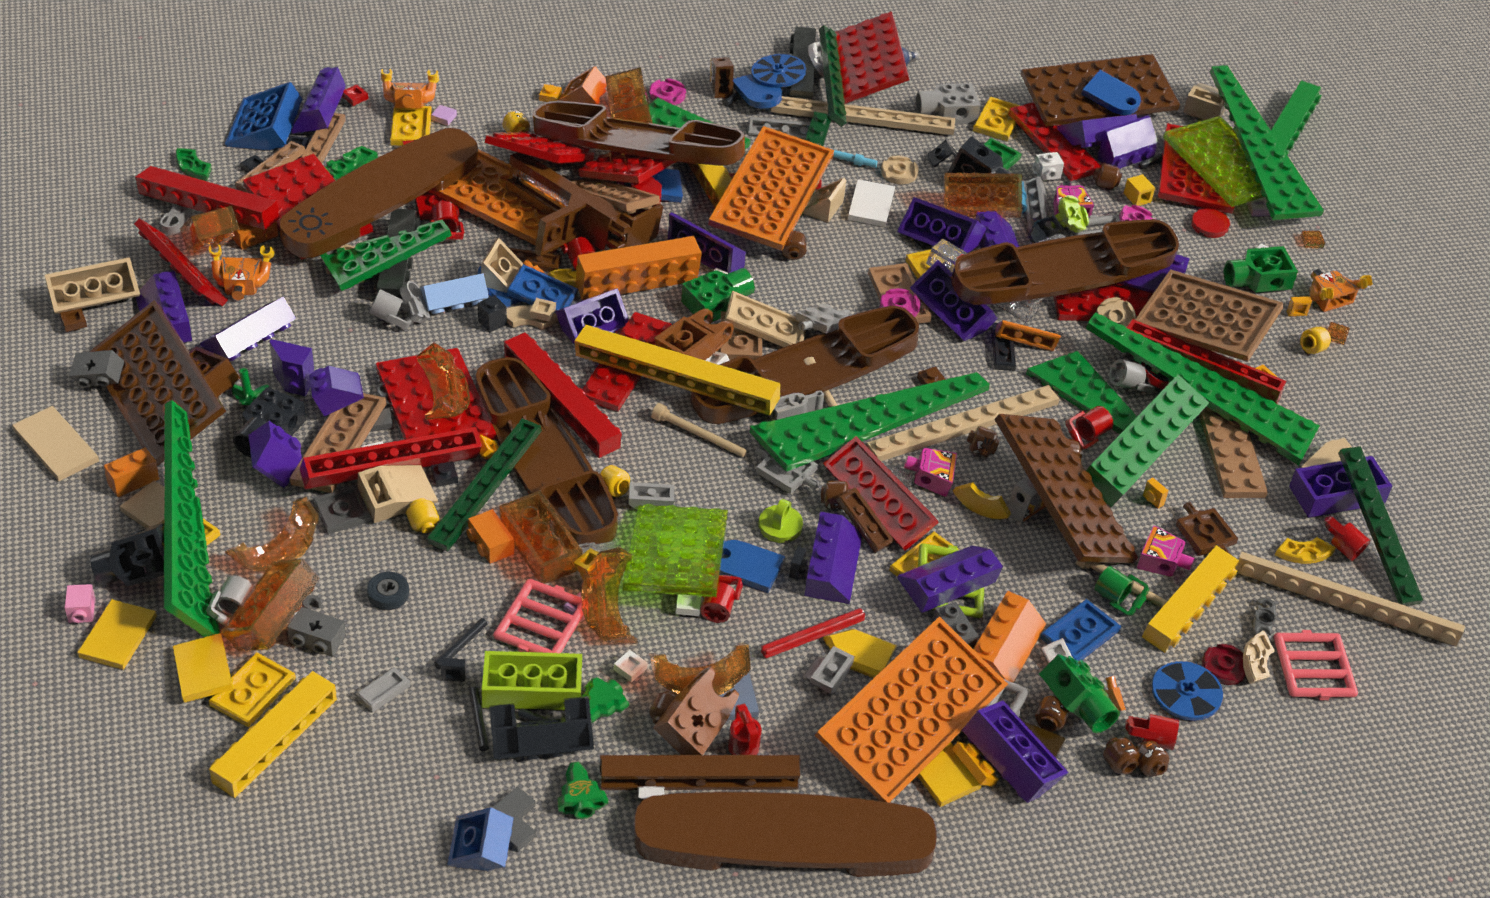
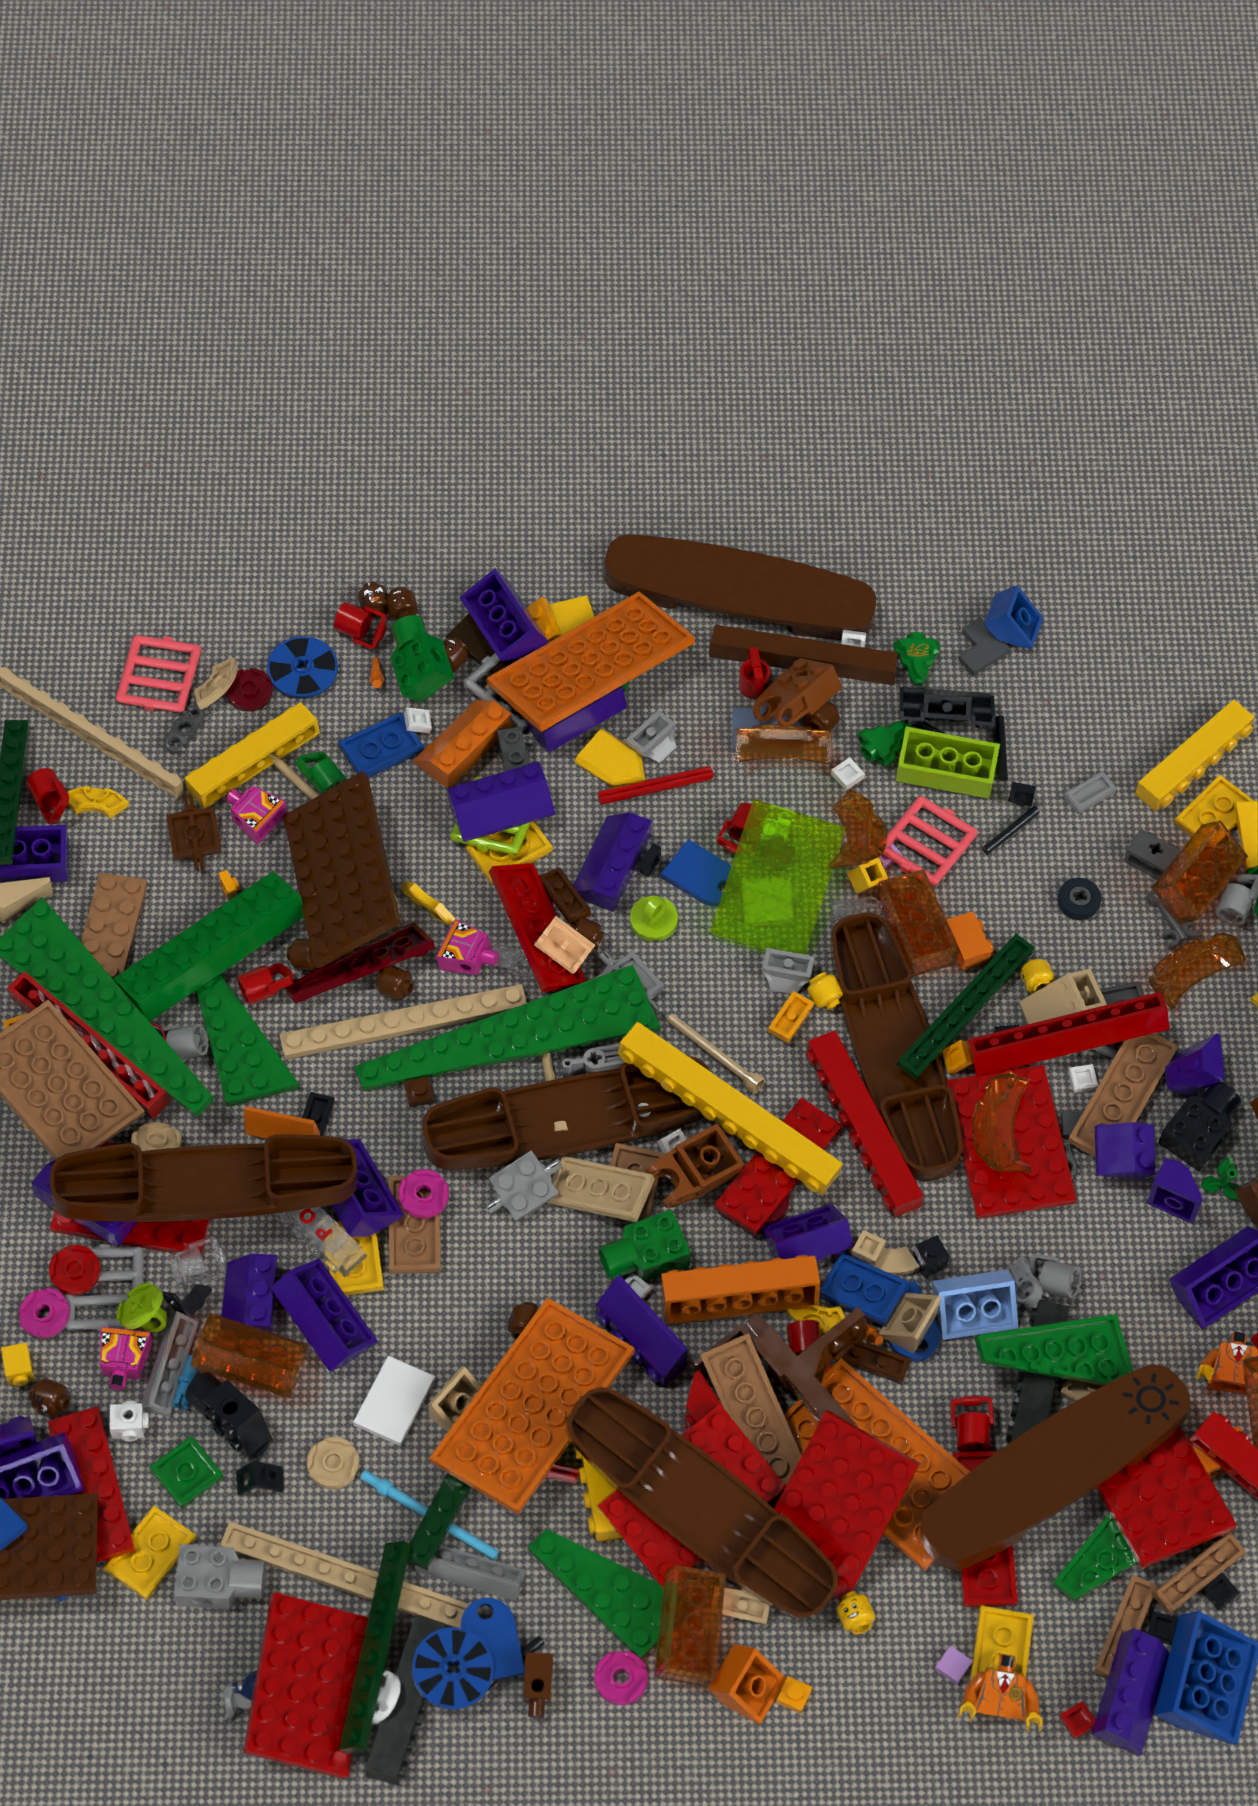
camera: 165 degrees left, 15 degrees up
(640, 461) = (791, 1017): none -> light orange plate
(854, 474) = (564, 945): none -> light nougat hinge
(997, 460) = (382, 953): none -> dark red wing

